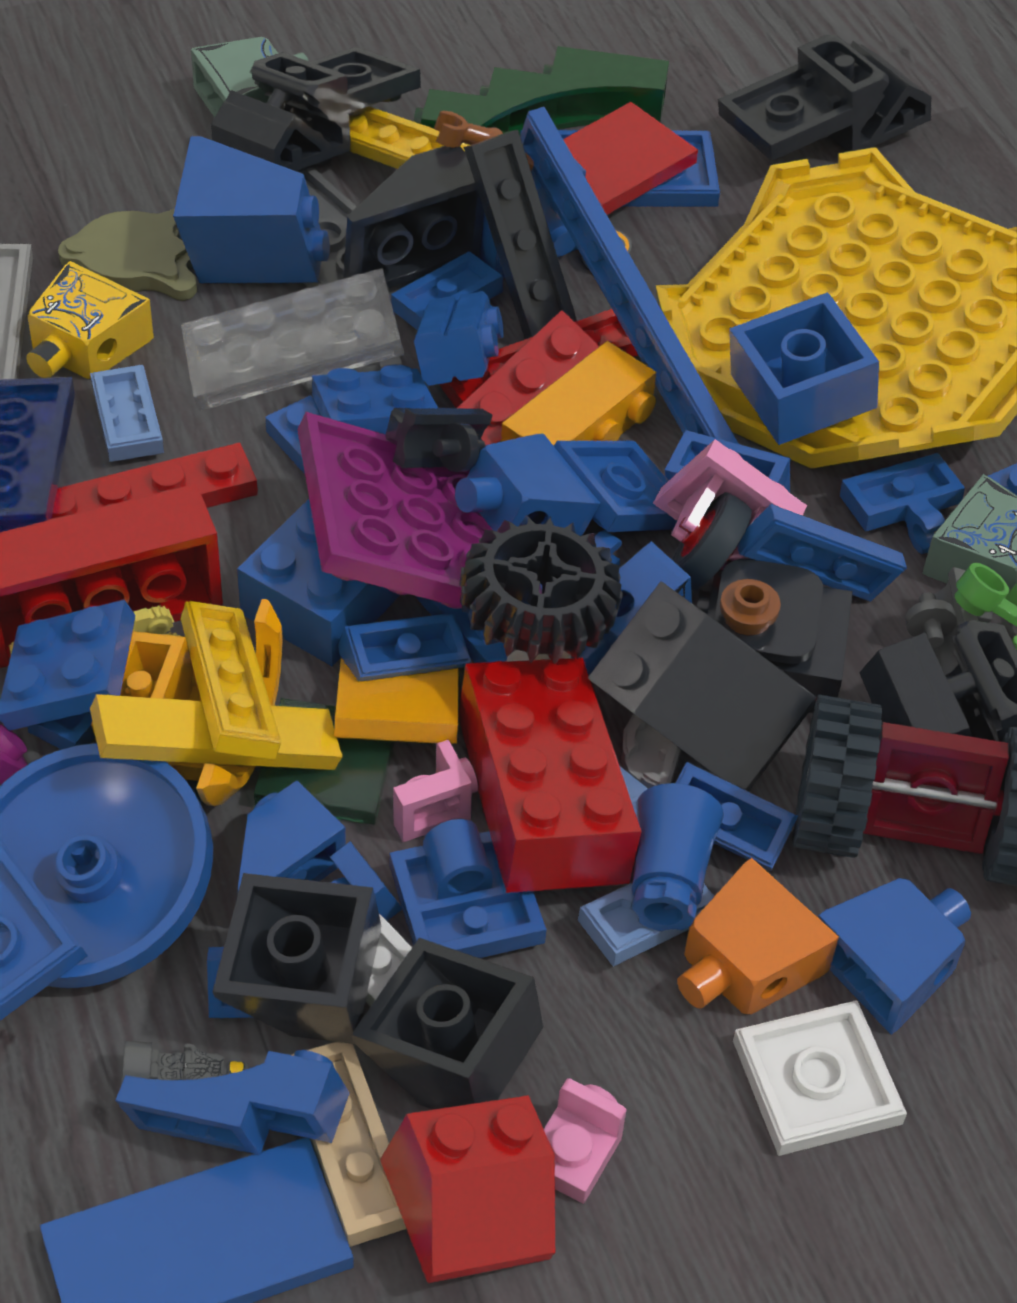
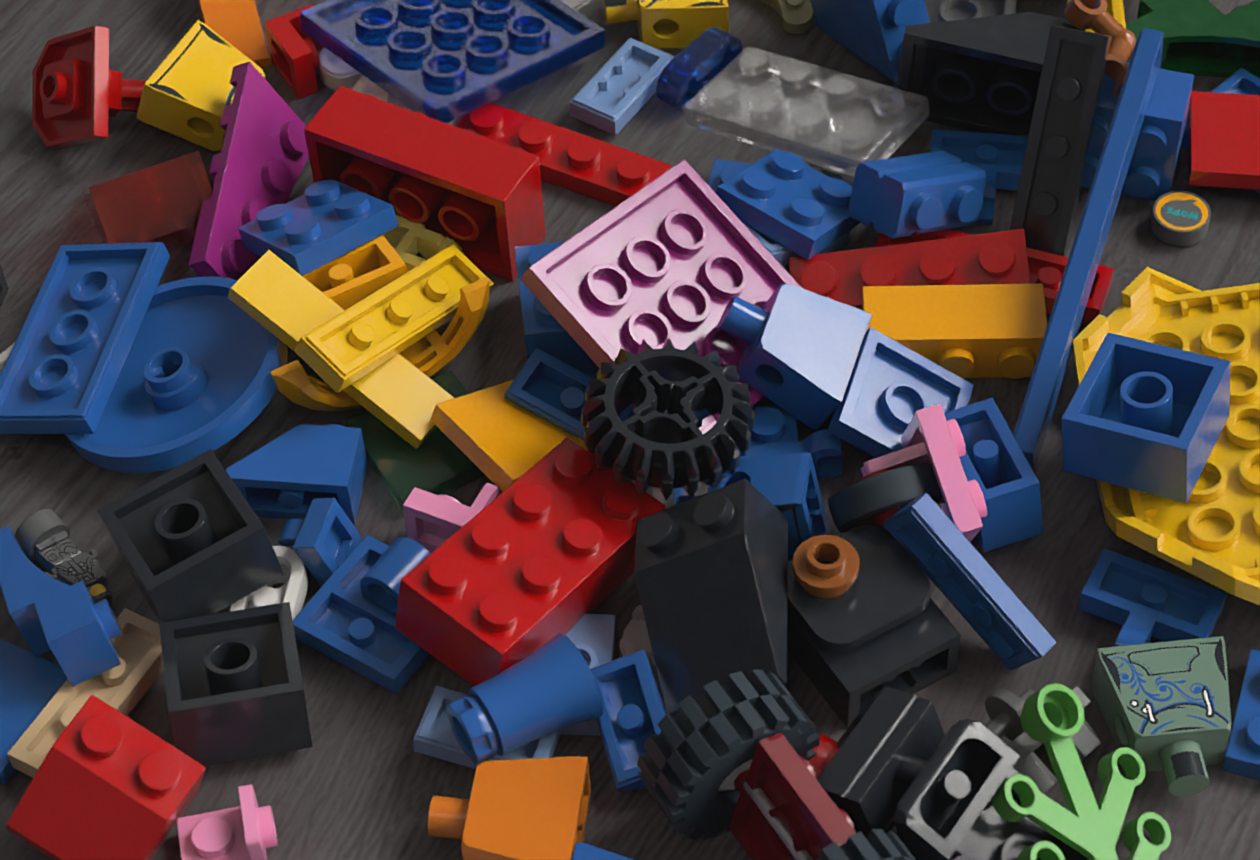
camera: 55 degrees right, 0 degrees up
(169, 362) = (696, 66): none -> clear blue beam
(437, 437) = (774, 253): black hips -> none

